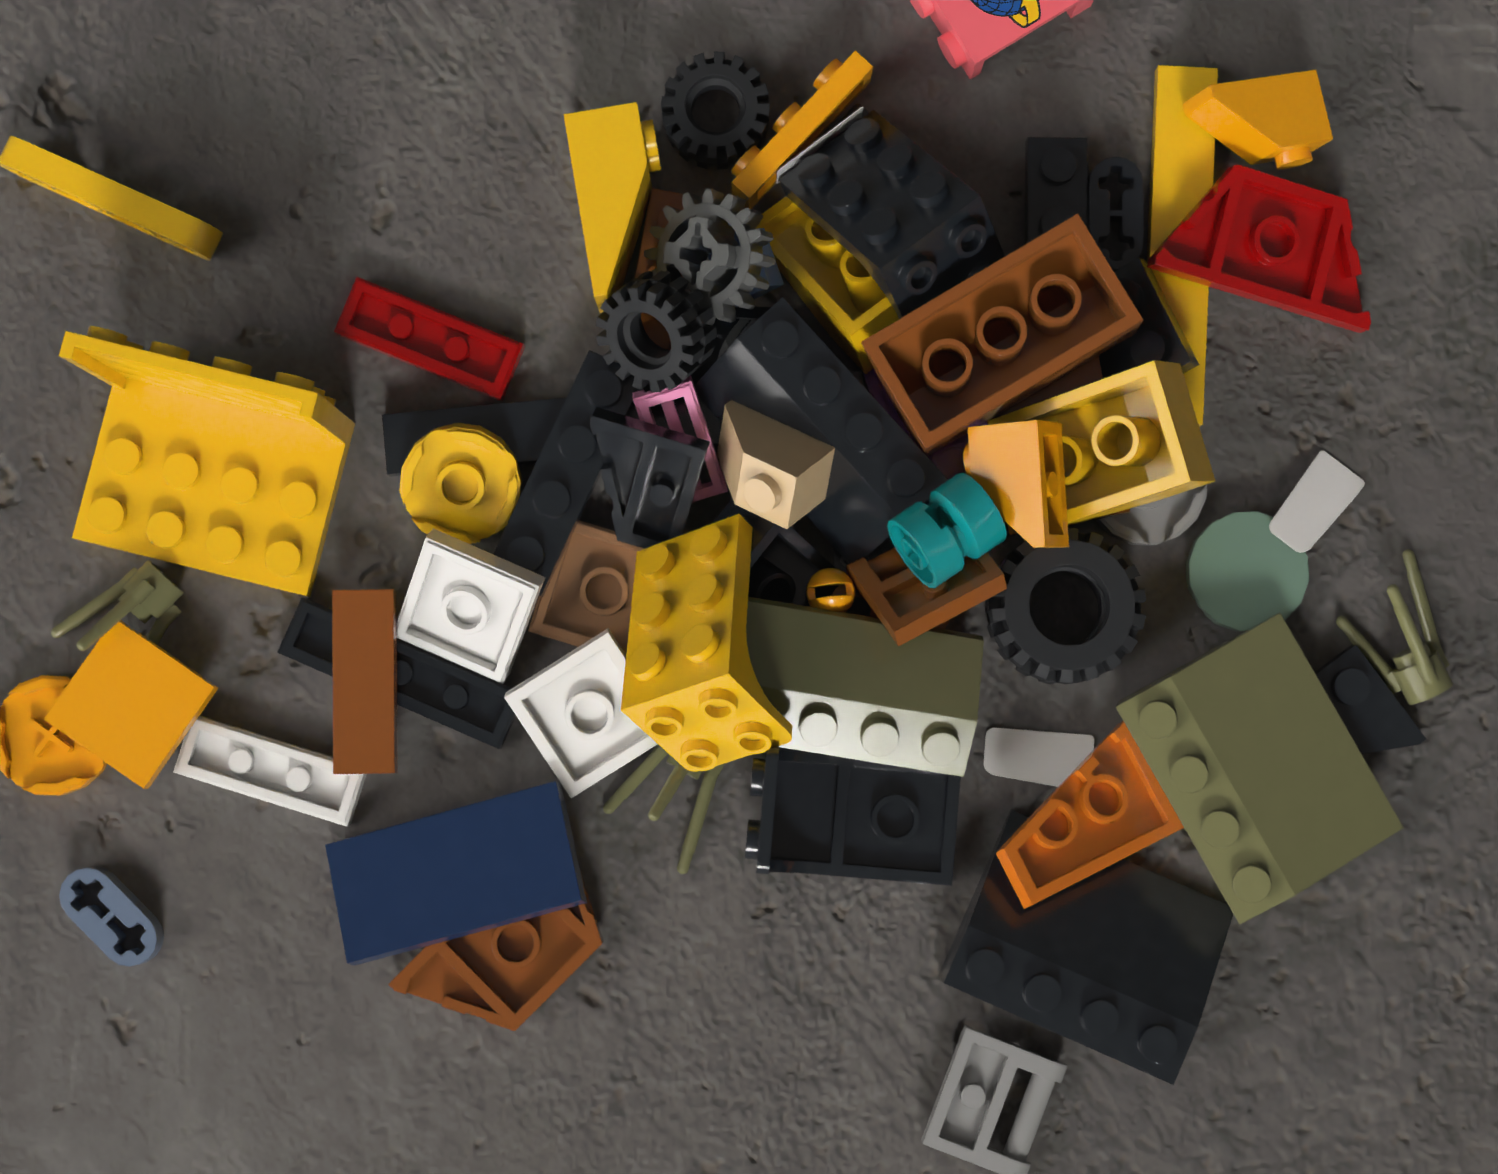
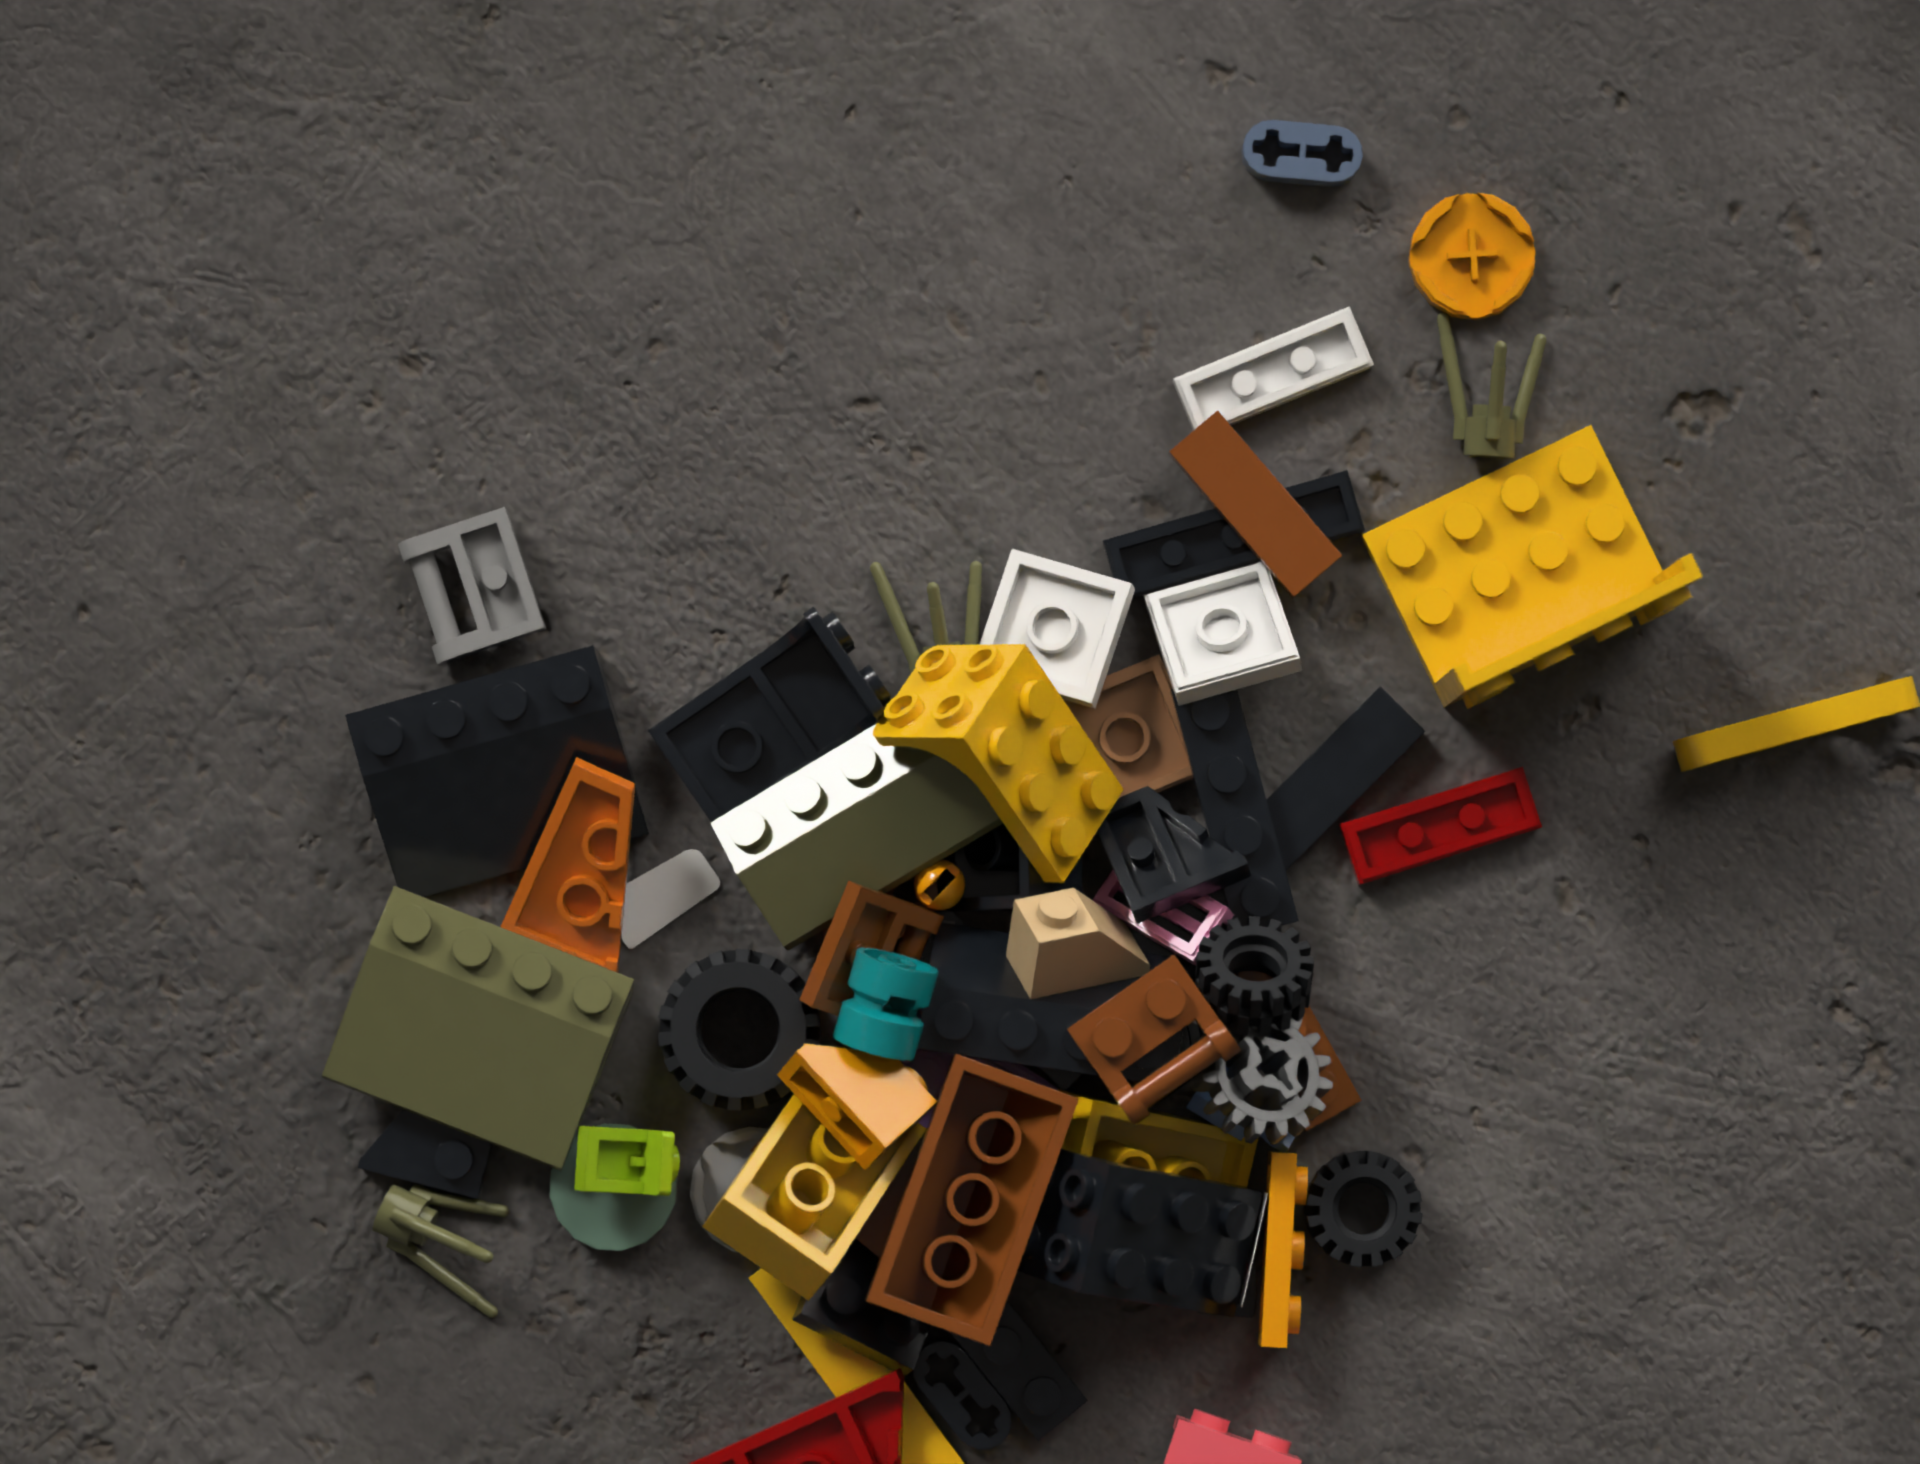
camera: 140 degrees right, 0 degrees up
(131, 704) = (1426, 332): light orange tile -> none
(455, 873) = (1054, 412): dark blue tile -> none
(461, 482) = (1313, 728): yellow tile -> none
(504, 969) = (966, 399): dark orange wing -> none
(613, 186) = (1390, 1067): yellow slope -> none
(769, 361) = (1139, 1022): none -> dark orange plate
(1228, 579) = (626, 1160): none -> lime bracket
(1315, 502) = (603, 1290): white sticker -> none

